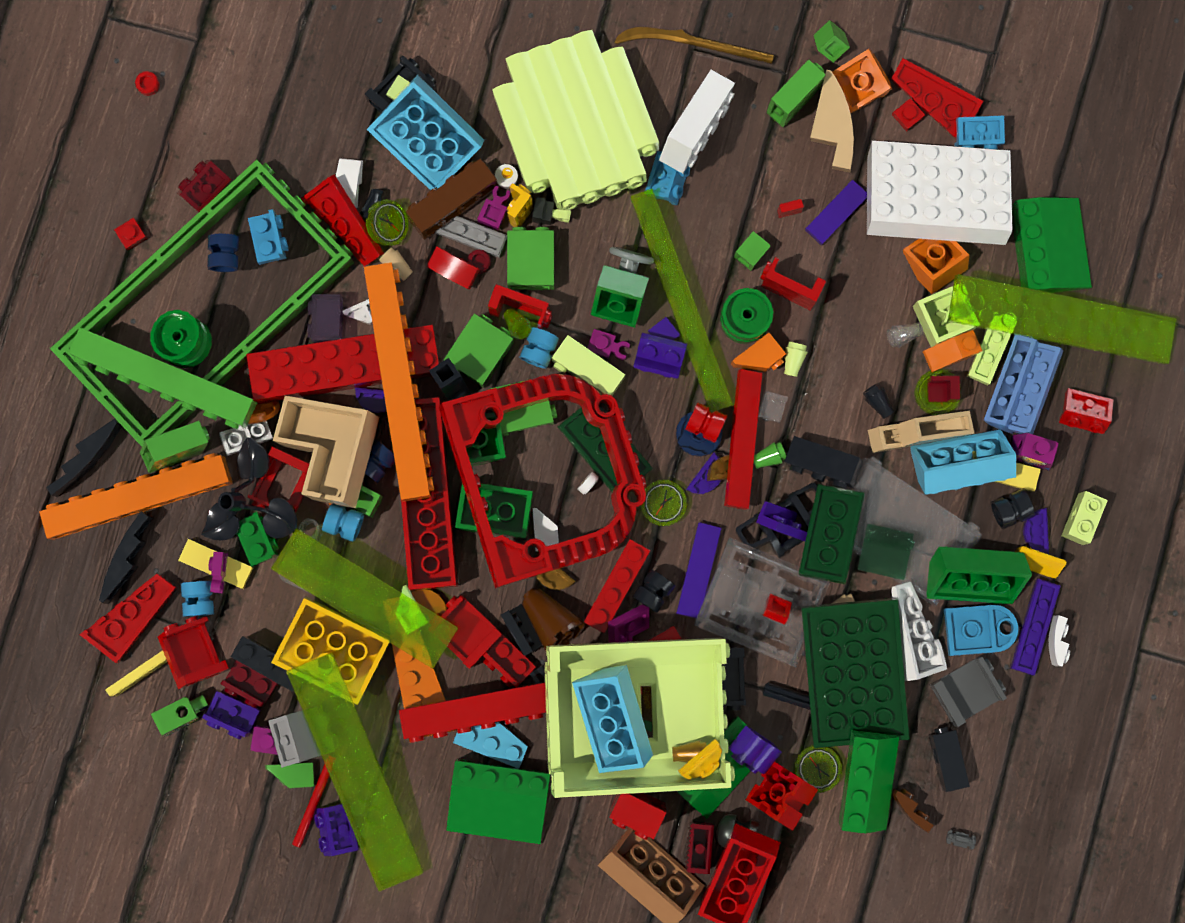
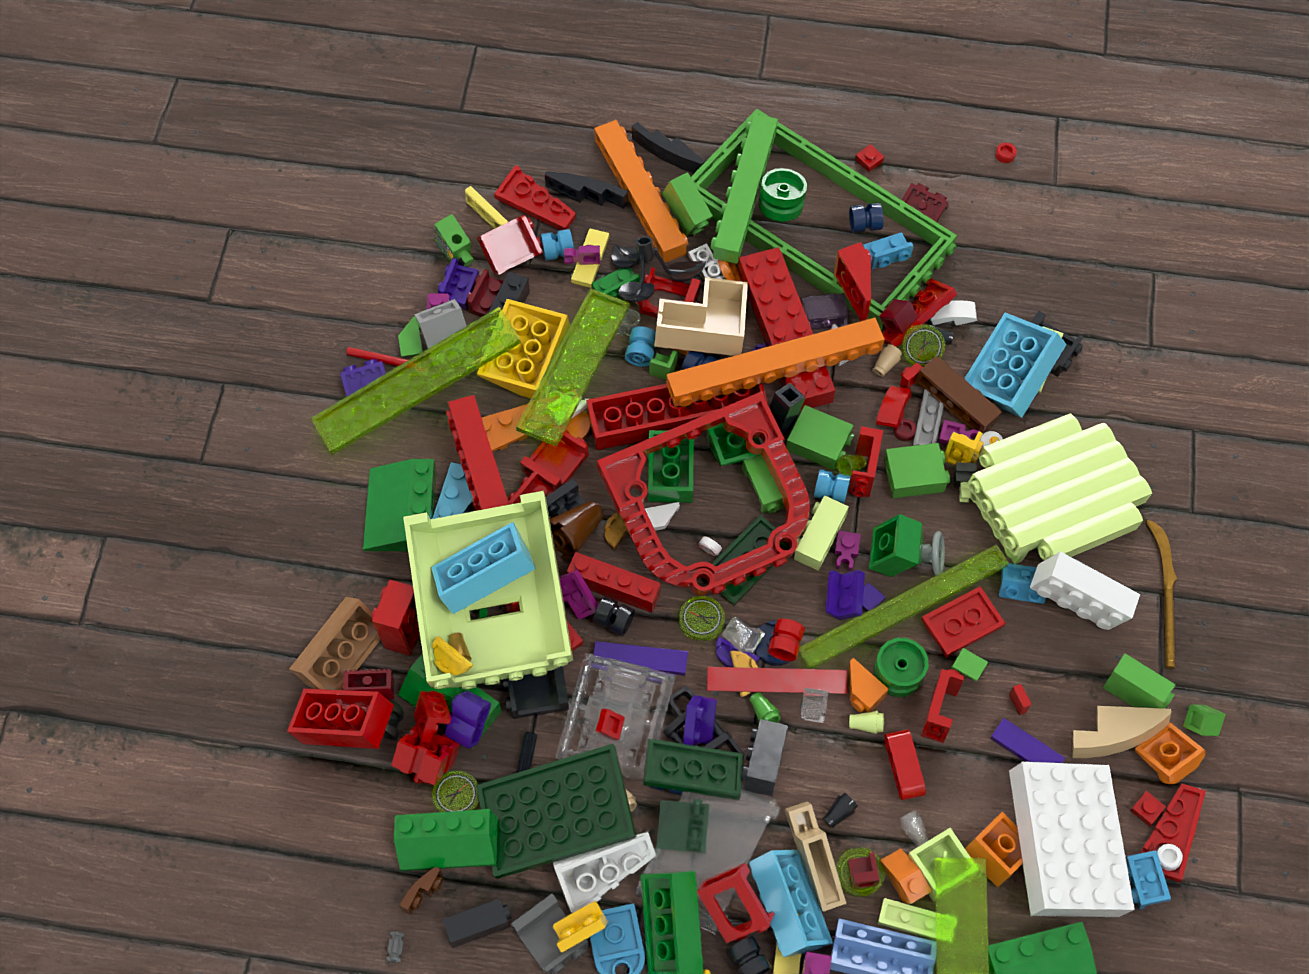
camera: 85 degrees right, 20 degrees down
(303, 277) = (854, 277): none -> red slope
(351, 241) = (898, 316): none -> dark red brick
(418, 243) = (909, 375): none -> red plate
(695, 467) = (742, 636): none -> clear panel
(702, 246) = (963, 621): none -> red plate
(748, 787) = (429, 712): none -> red bracket
(841, 331) = (904, 764): none -> red beam
(952, 511) = (734, 878): none -> red panel
(962, 106) = (1170, 857): none -> white tile
(969, 661) = (579, 925): none -> yellow bracket

